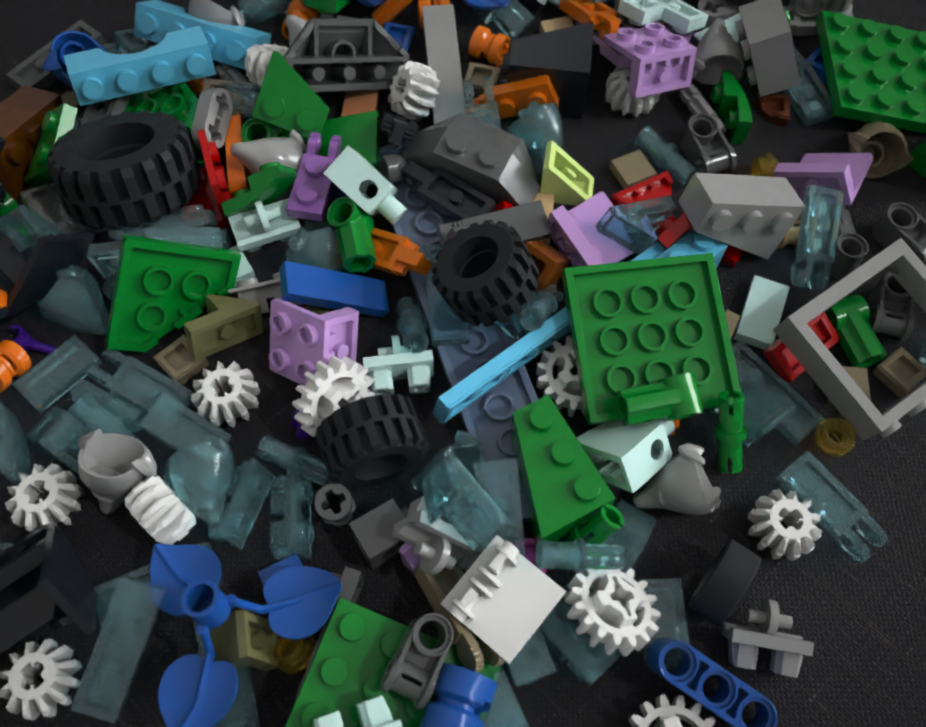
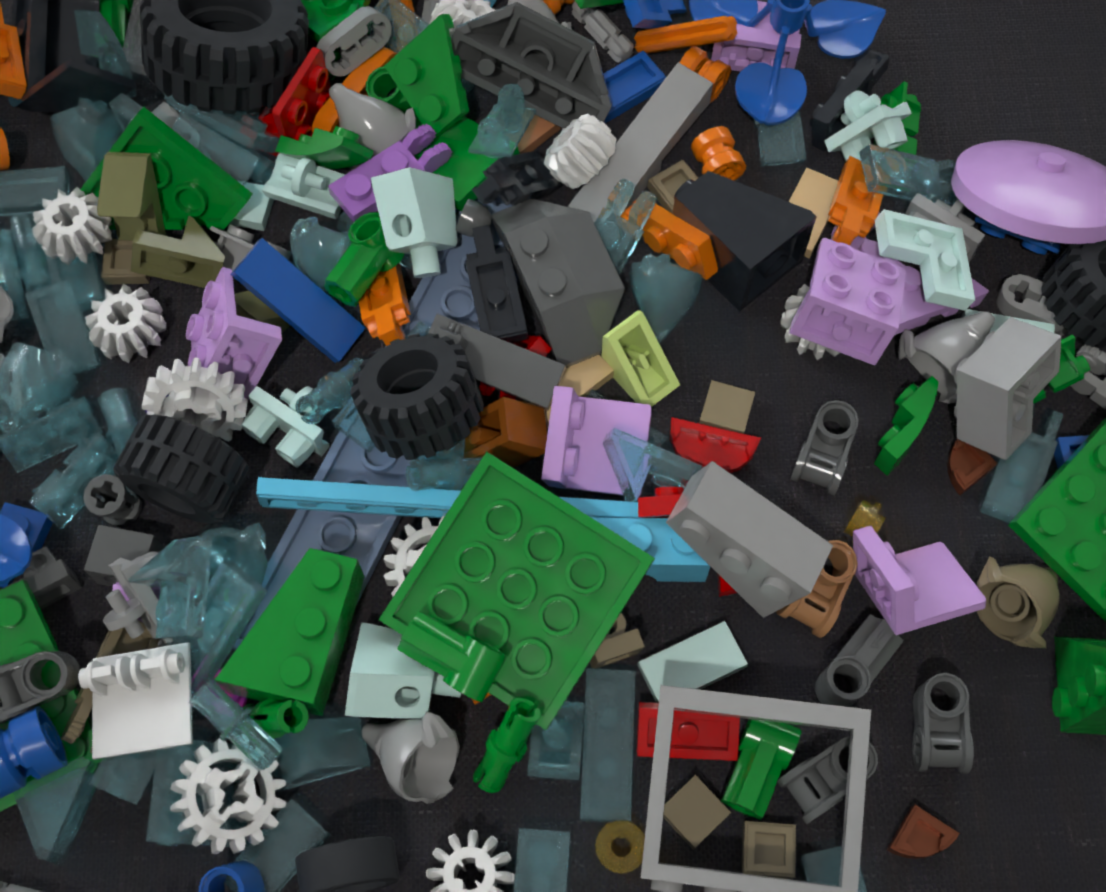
camera: 45 degrees right, 5 degrees up
(27, 342) = (26, 141): dark purple hand -> none
(129, 358) = (71, 226): none -> white gear
(155, 307) = (130, 194): none -> olive slope
(359, 101) = (504, 125): none -> clear light blue hinge
(665, 155) = (776, 421): clear light blue pin -> none
(698, 104) = (875, 404): light grey axle -> none
(817, 237) = (822, 635): clear light blue hinge -> none

